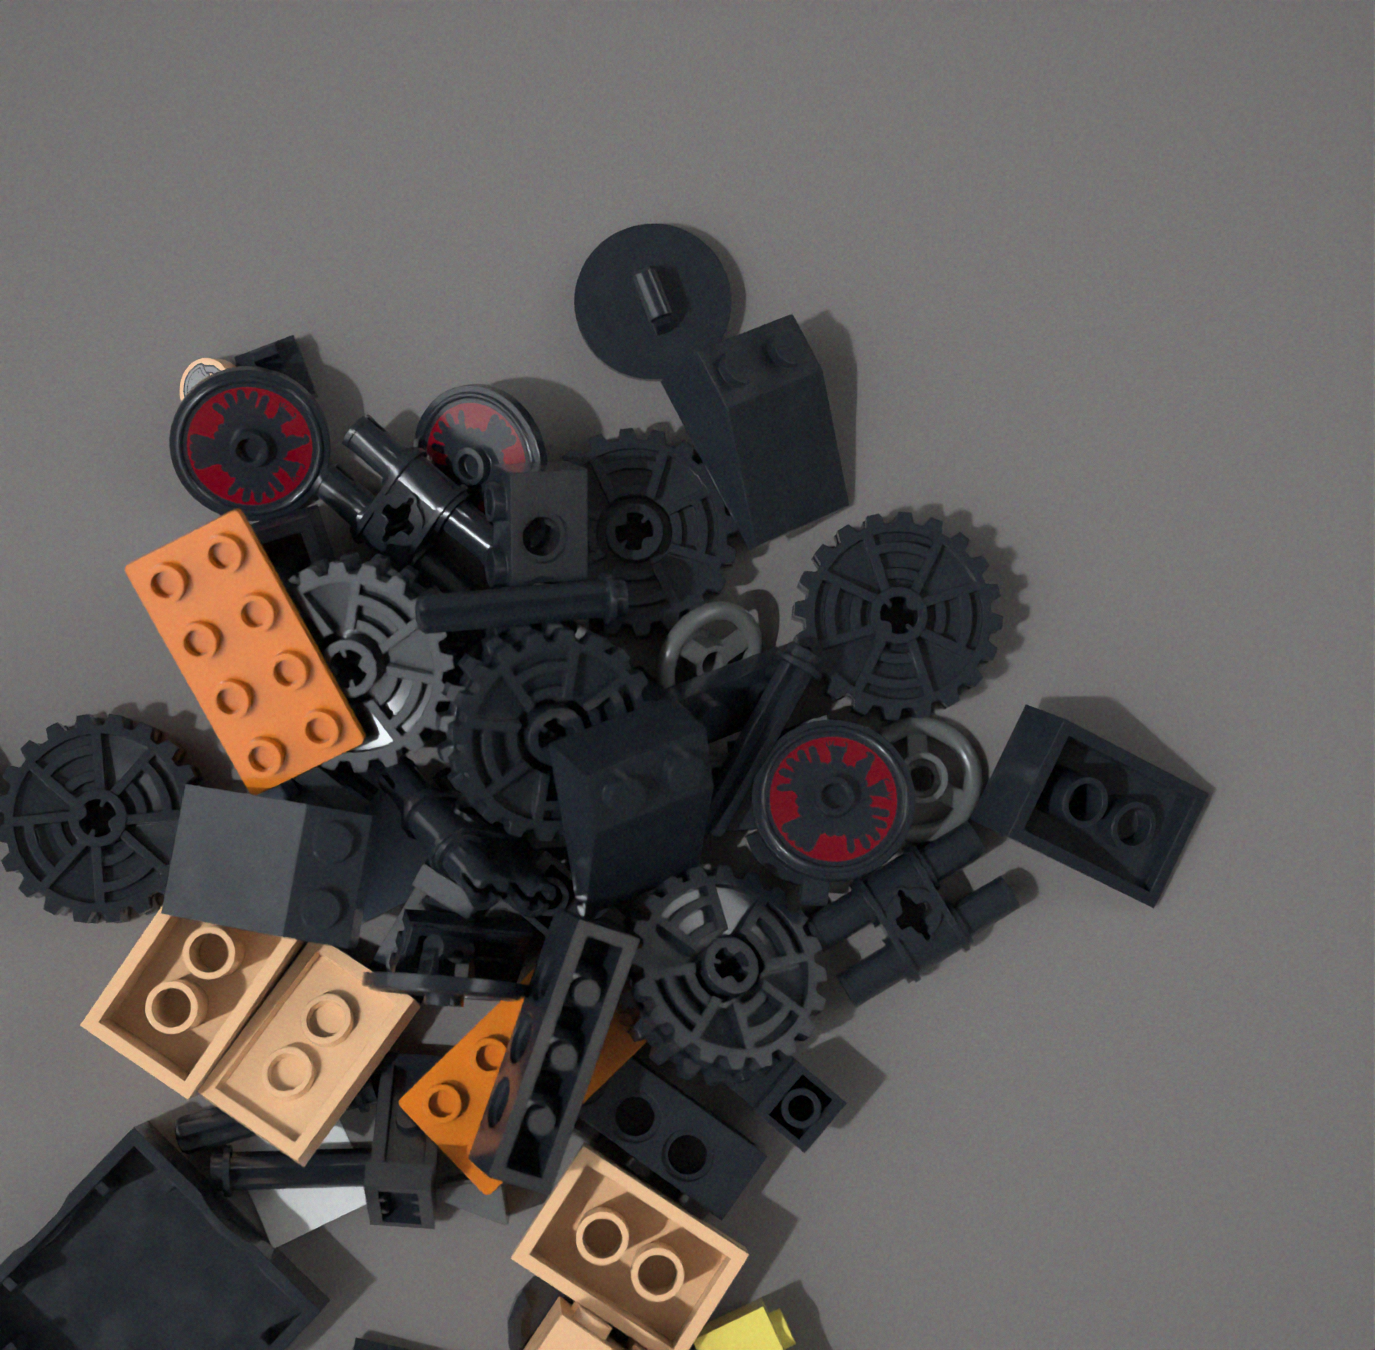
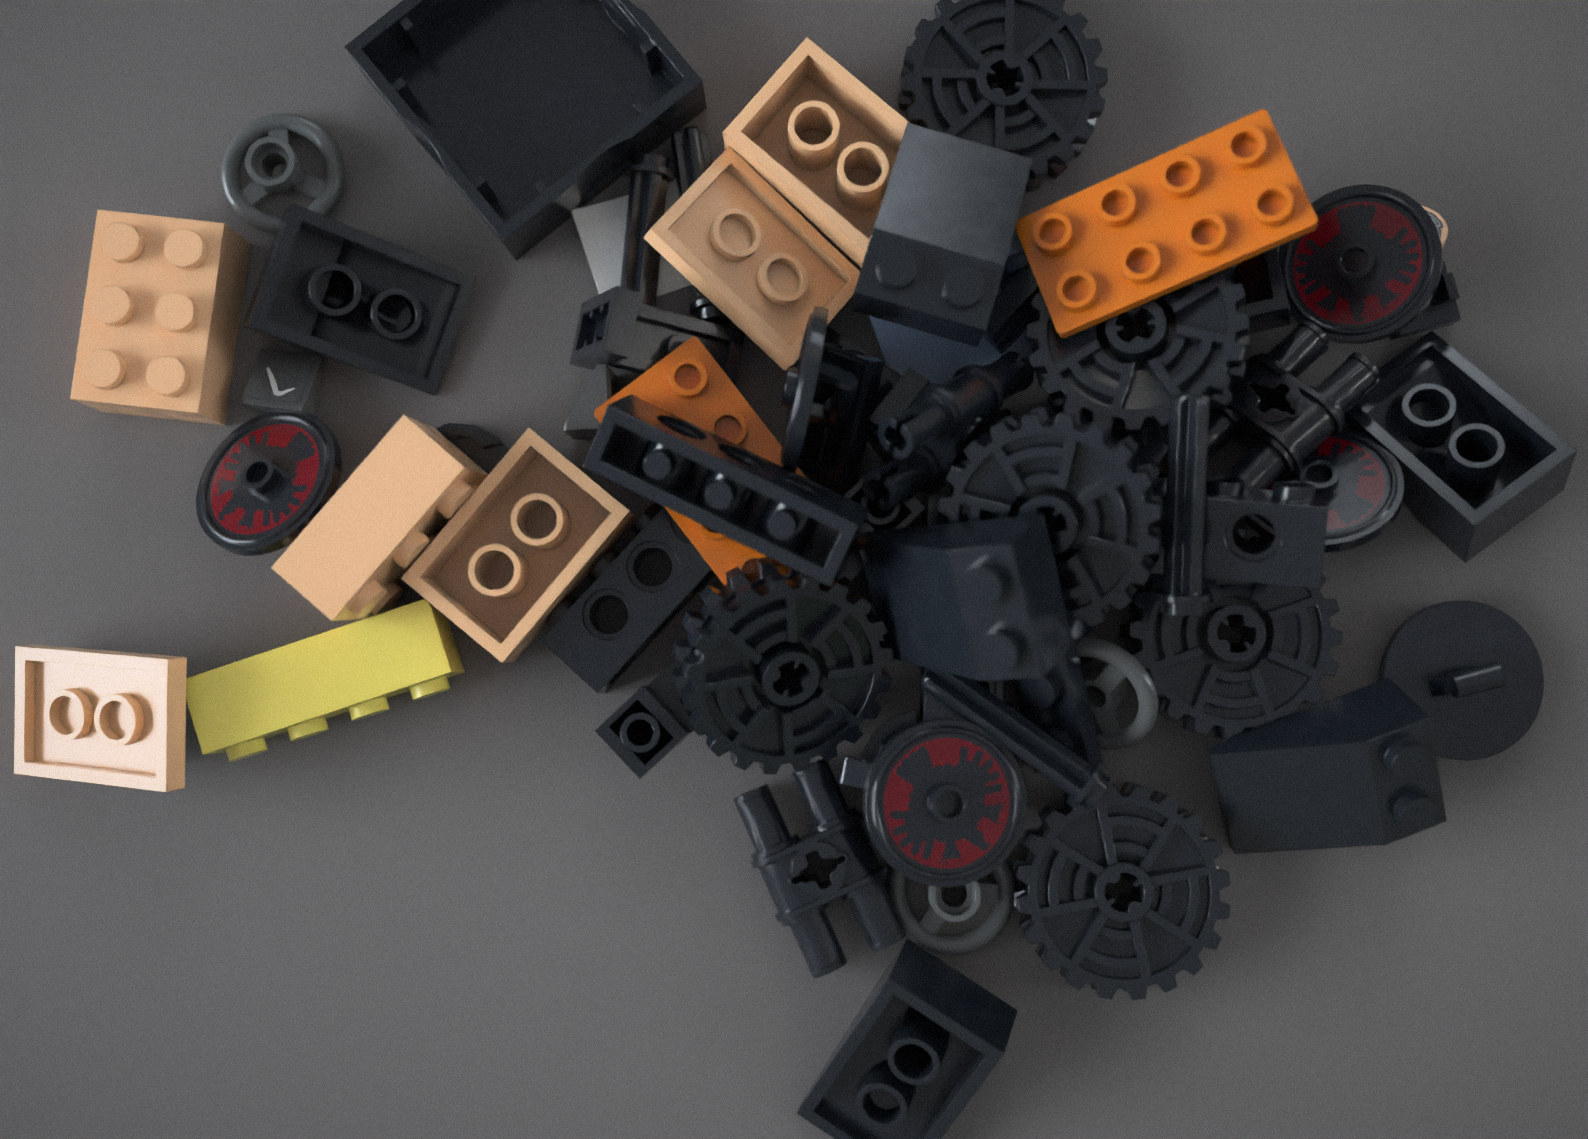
camera: 105 degrees right, 0 degrees up
(421, 329) = (1464, 445): none -> black slope

